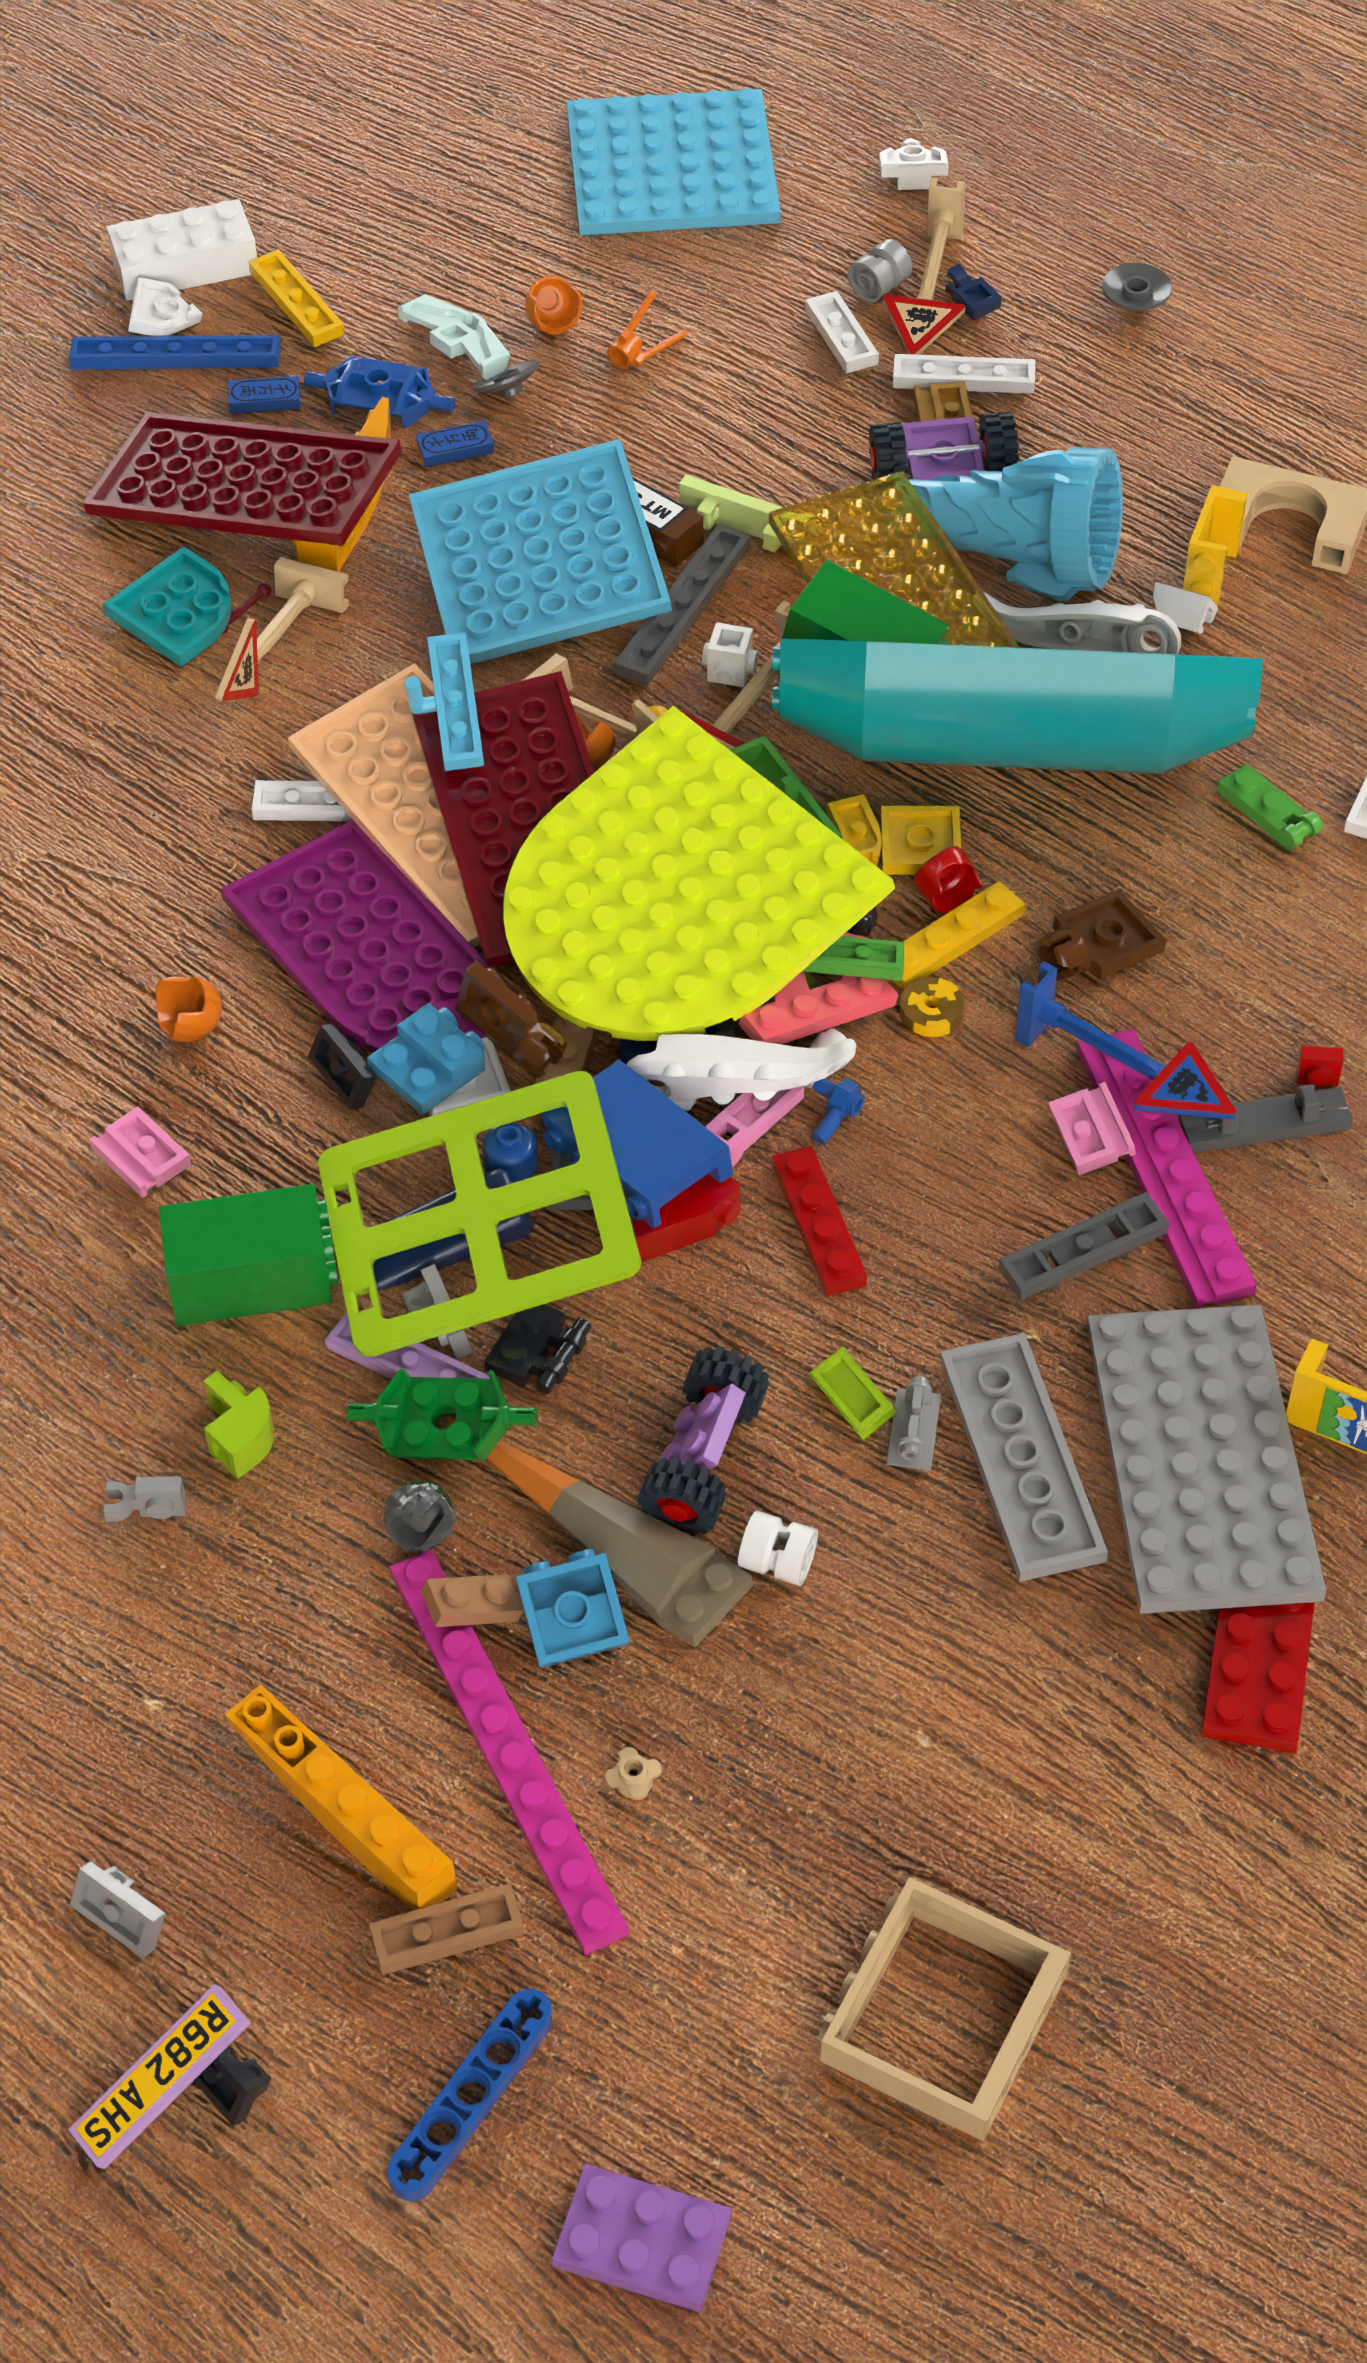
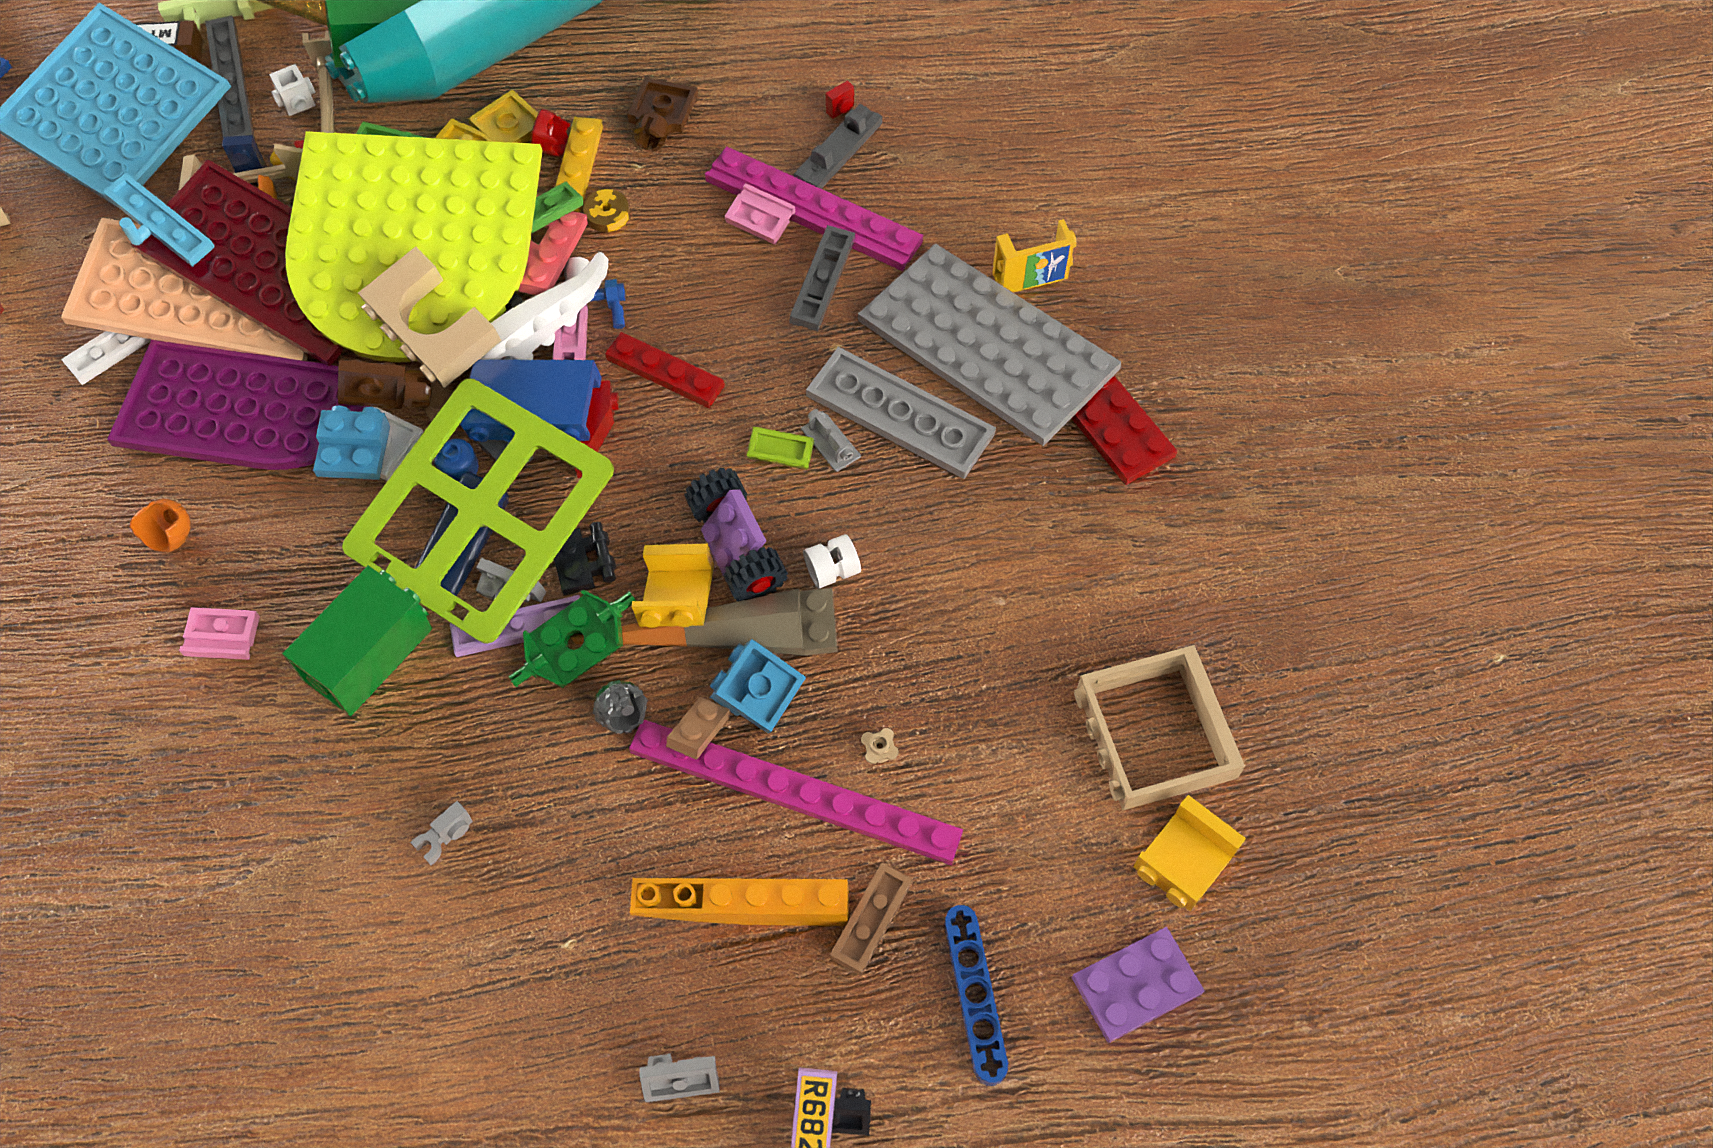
camera: 45 degrees left, 10 degrees up
(244, 1428) = (460, 739): lime brick -> none
(342, 1066) = (298, 488): black hinge -> none
(587, 940) = (441, 354): none -> tan arch
(596, 1447) = (675, 585): none -> yellow panel
(611, 690) = (243, 153): none -> dark blue plate
(834, 2164) = (1188, 854): none -> yellow panel
(1178, 1087) = (787, 156): blue piece -> none

